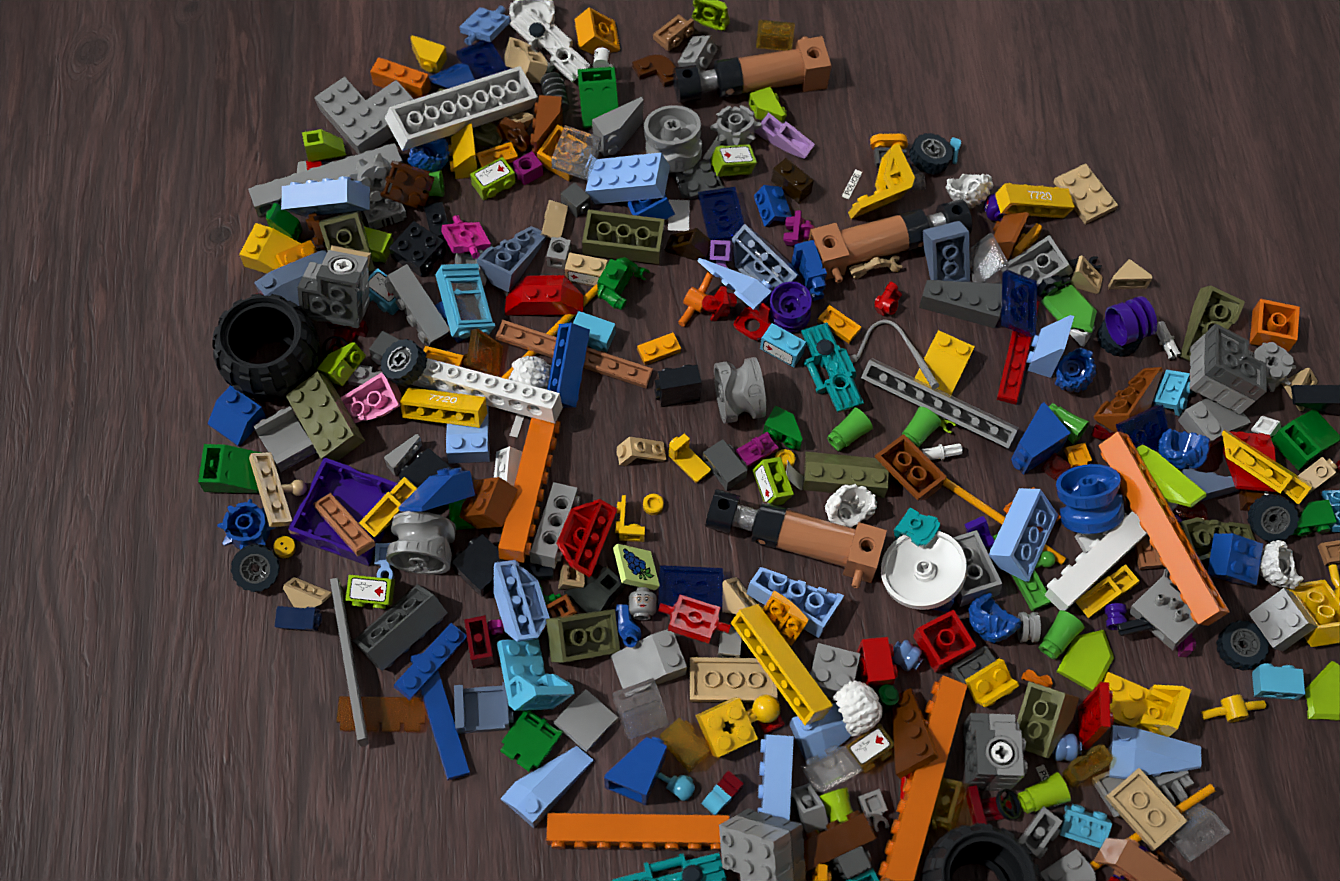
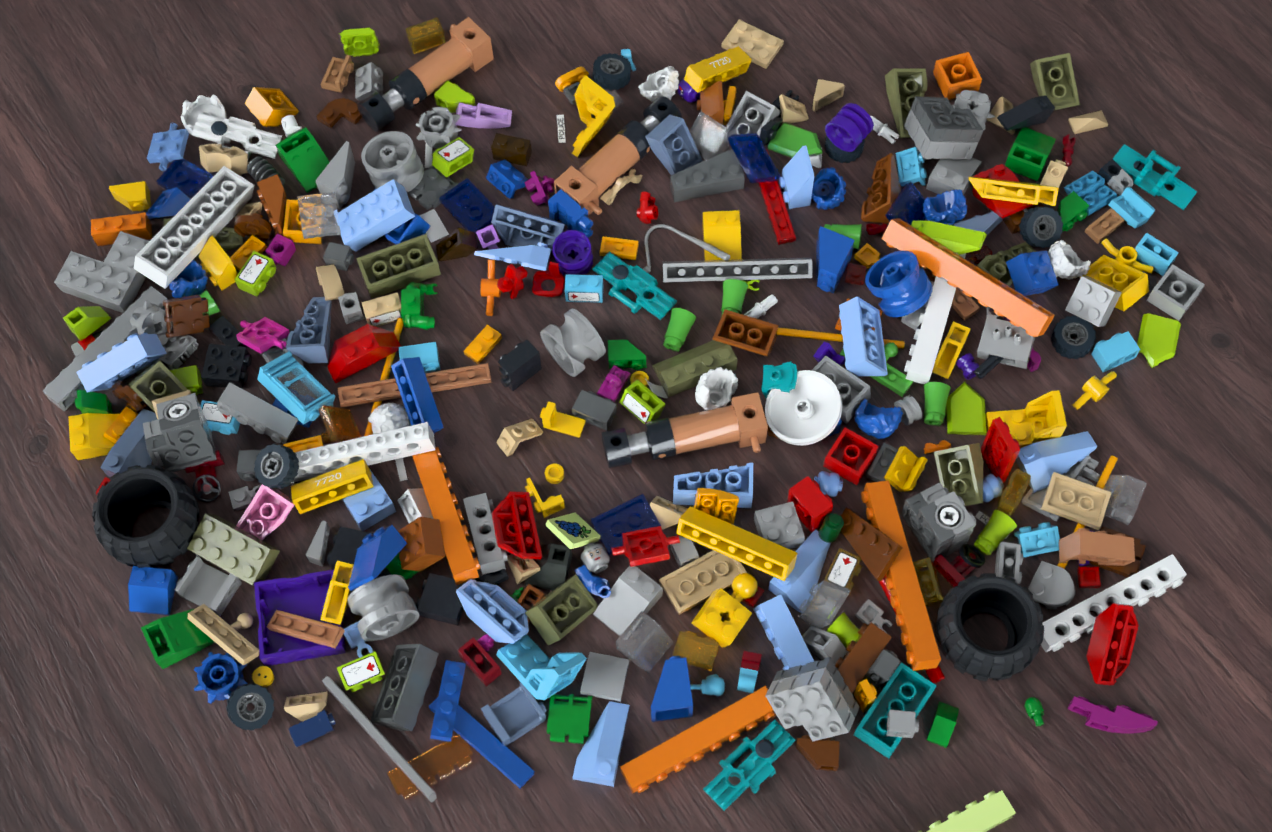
camera: 25 degrees left, 0 degrees up
(342, 363) = (220, 496): lime slope -> none
(858, 707) = (817, 543): white hair -> none
(1266, 426) = (995, 158): white slope -> none

